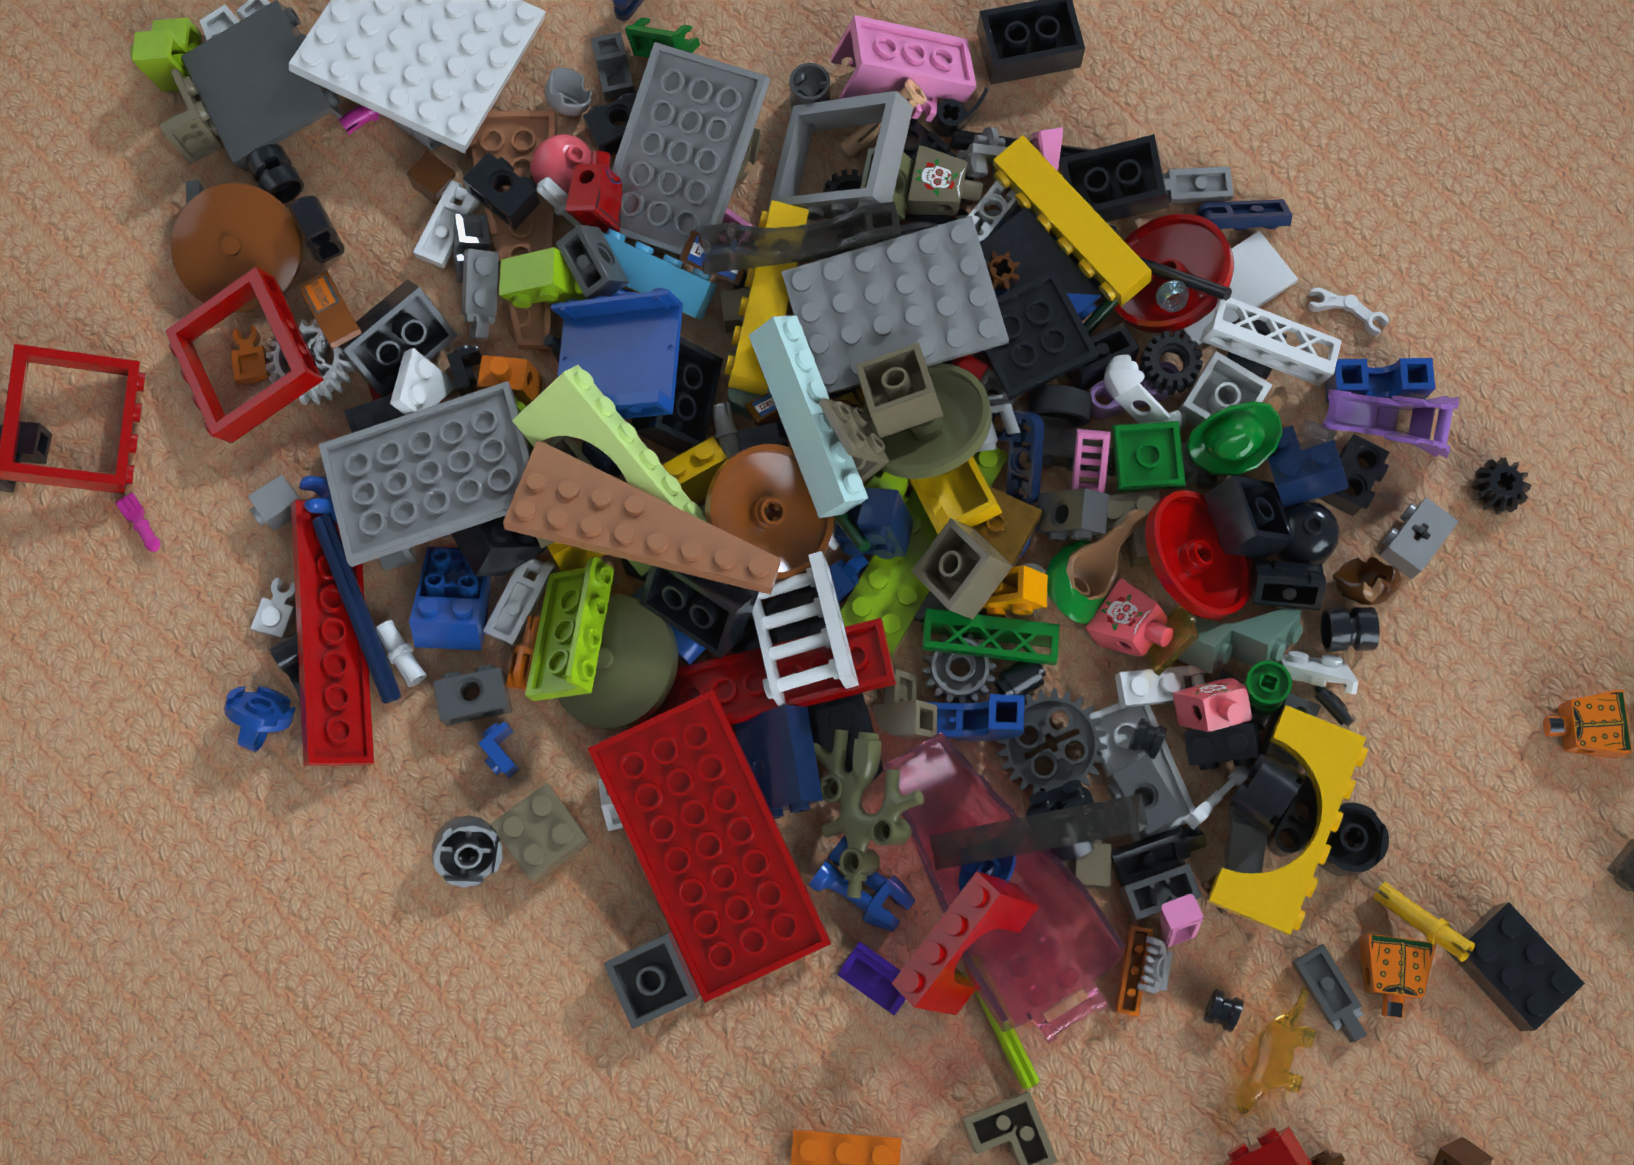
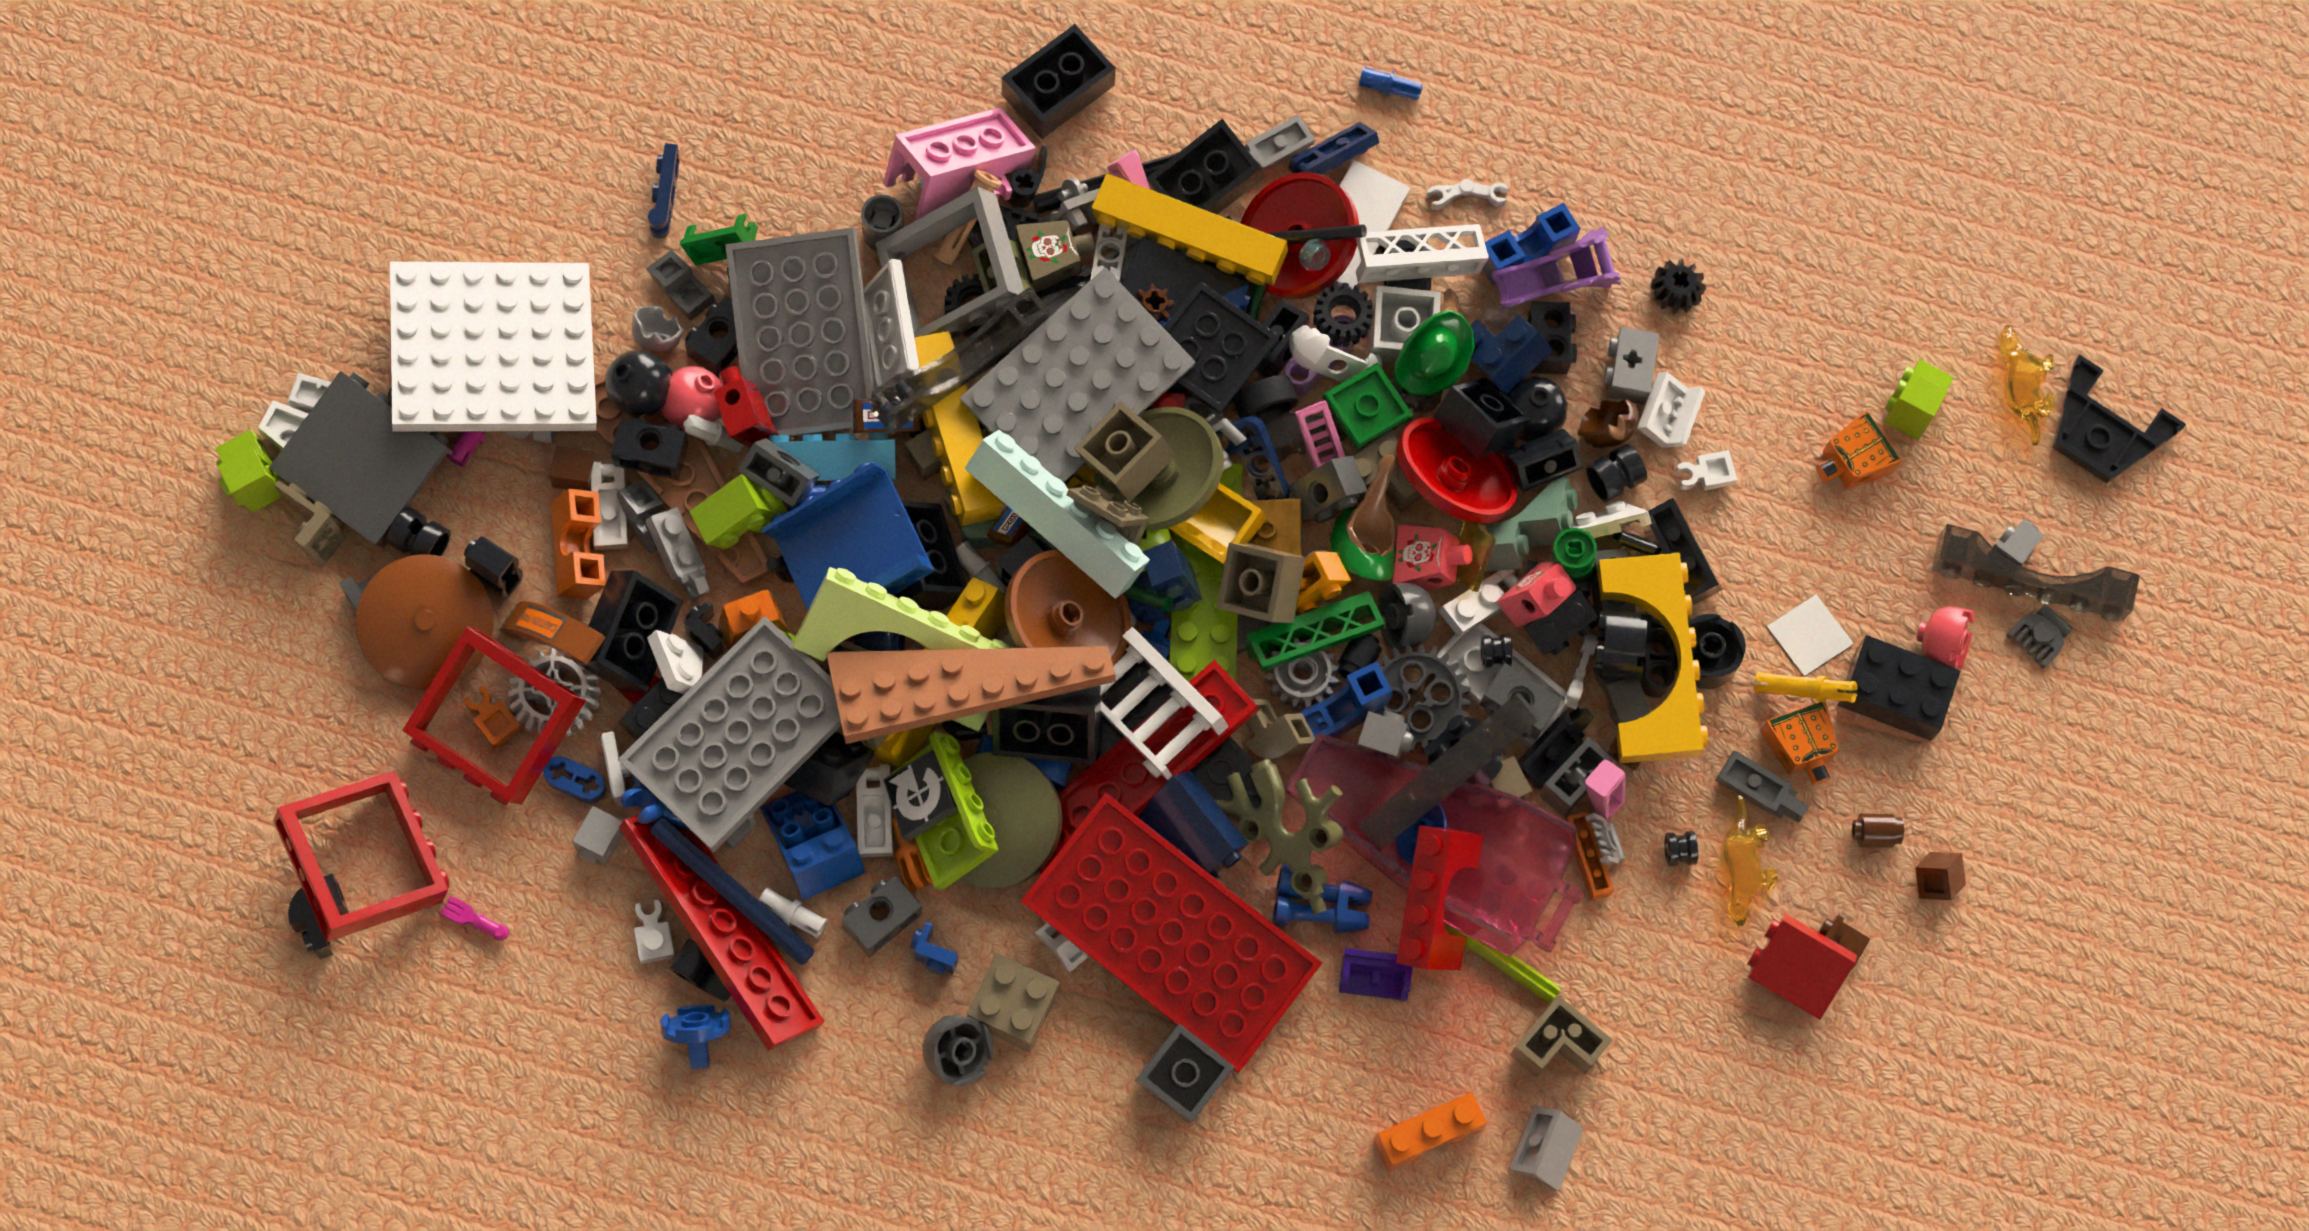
camera: 35 degrees left, 5 degrees down
(293, 440) = (577, 772): none -> blue beam
(328, 430) = (615, 769): none -> white plate
(401, 233) = (573, 522): none -> orange arch
(521, 128) = (638, 383): none -> black cylinder
(554, 607) = (919, 796): none -> tile
(764, 177) = (889, 324): none -> white tile
(1000, 765) = (1386, 734): none -> light grey brick
(1085, 664) = (1408, 614): none -> dark grey cylinder
(1329, 178) = (1389, 83): none -> blue axle
(1375, 721) = (1677, 537): none -> black brick
(1422, 1092) = (1878, 830): none -> reddish brown brick
(1431, 597) = (1670, 411): none -> white bracket
(1442, 671) = (1711, 470): none -> white plate
(1455, 871) = (1810, 635): none -> white sticker
(1587, 942) = (1946, 636): none -> coral cylinder

